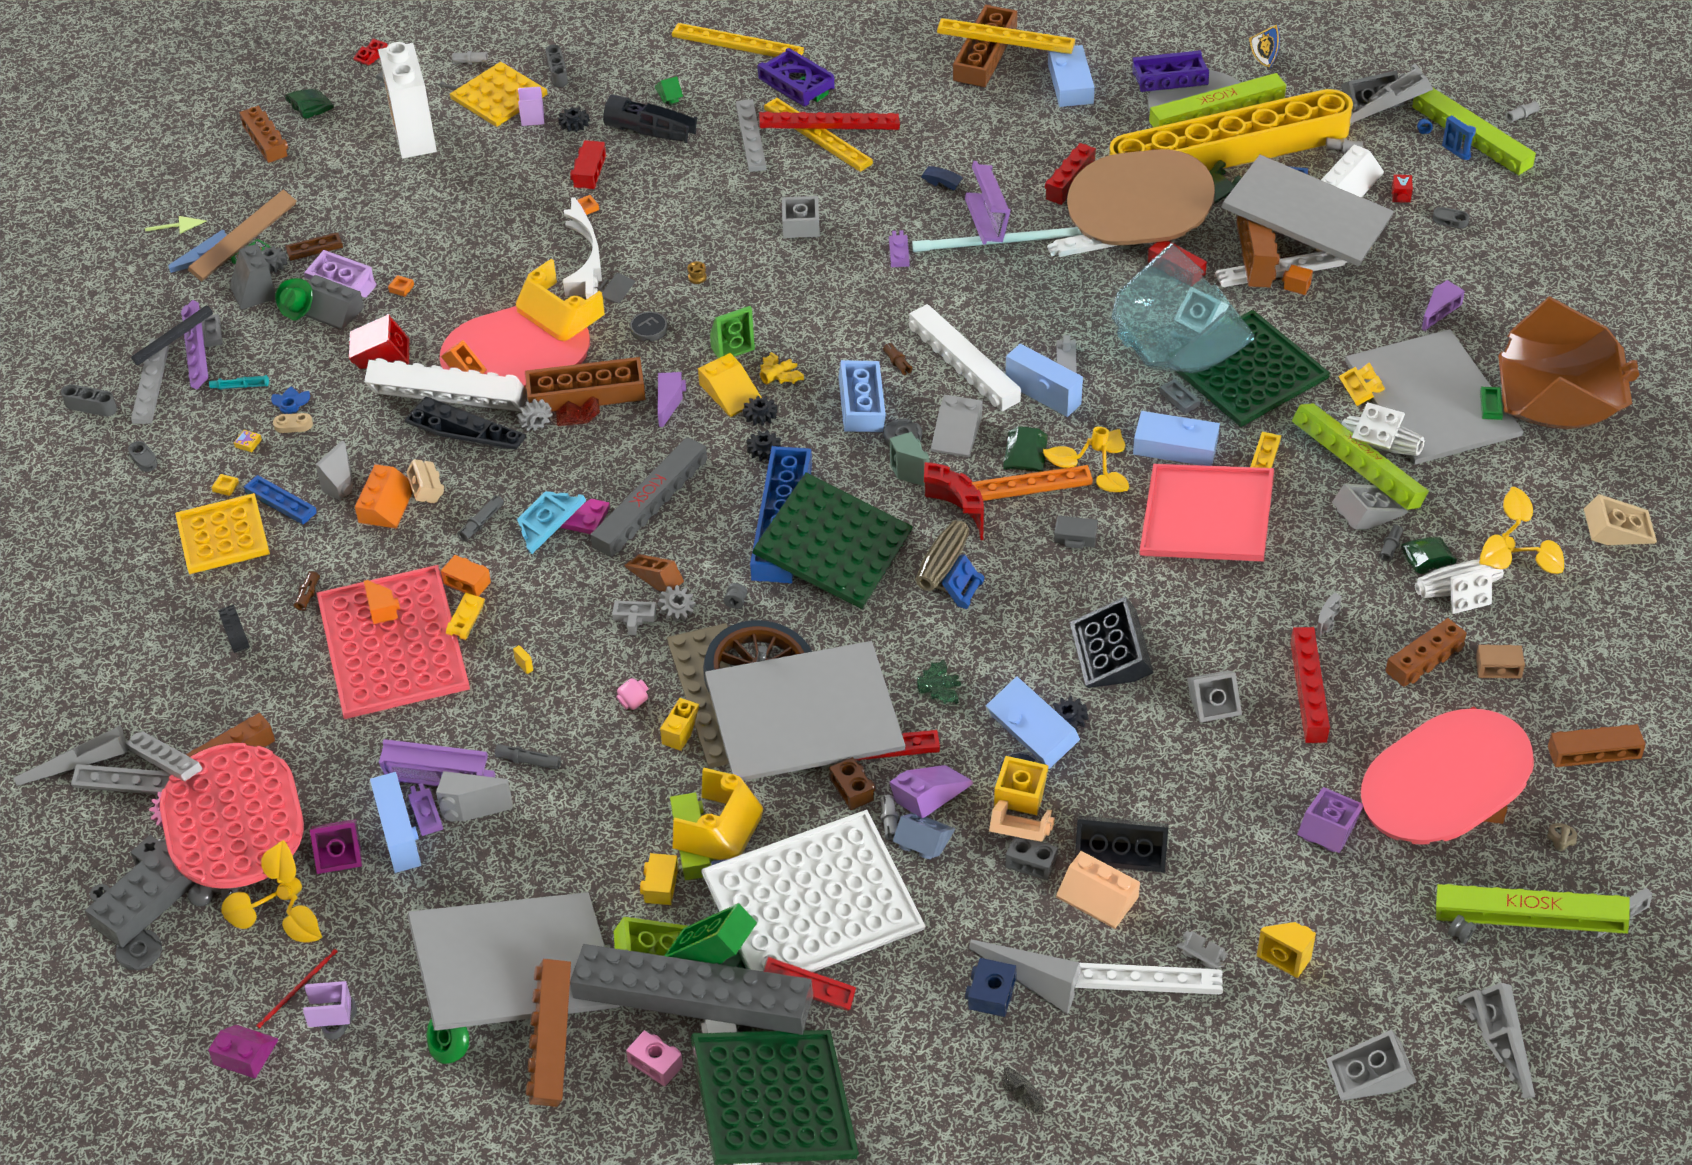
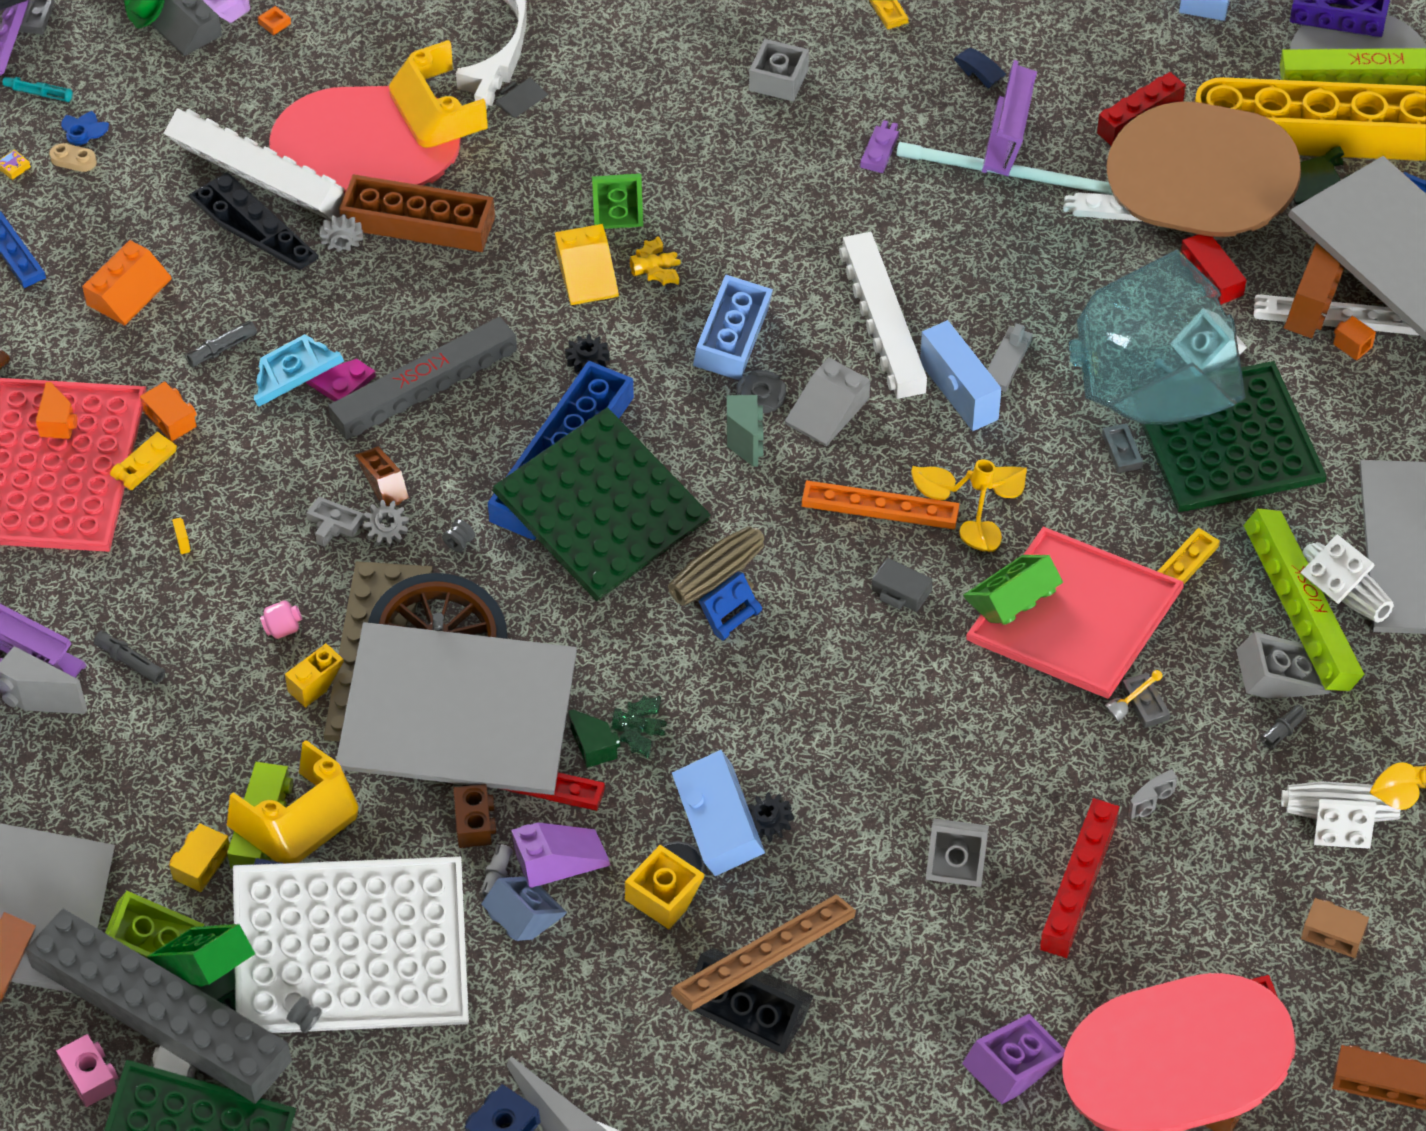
camera: 20 degrees right, 5 degrees up
(335, 472) = (86, 235): light grey slope -> none
(378, 340) = (212, 89): red slope -> none
(425, 481) = (179, 278): tan brick -> none
(463, 358) = (294, 140): orange slope -> none
(572, 414) = (392, 246): clear red slope -> none
(648, 326) = (532, 158): black tile -> none
(669, 394) = (509, 256): medium lavender slope -> none
(696, 272) = (622, 105): pearl gold wheel -> none
(760, 410) = (605, 308): black gear -> none
(807, 958) = (304, 1014): none -> dark grey wheel
(824, 988) = (303, 1049): red plate -> none
(897, 359) = (804, 291): reddish brown pin -> none
(911, 702) = (593, 738): none -> dark green slope
(956, 489) = (776, 481): red panel -> none
(1020, 826) = (635, 937): light nougat panel -> none
(1025, 449) = (894, 457): dark green slope -> none
(1031, 857) = (628, 983): dark grey brick -> none
(1098, 889) = (689, 1050): light nougat slope -> none
(1111, 645) = (867, 746): black slope -> none
(1120, 804) = (762, 952): none -> medium nougat tile
(1159, 507) = (1015, 588): none -> bright green slope
(1176, 438) = (1086, 503): light blue brick -> none
(1272, 565) = (1119, 707): none -> hinge
(1288, 555) = (1148, 703): none -> flat silver plate
(1356, 386) = (1352, 507): yellow plate -> none
(1426, 652) = (1248, 885): dark orange brick -> none
(1428, 554) = (1323, 756): dark green slope -> none

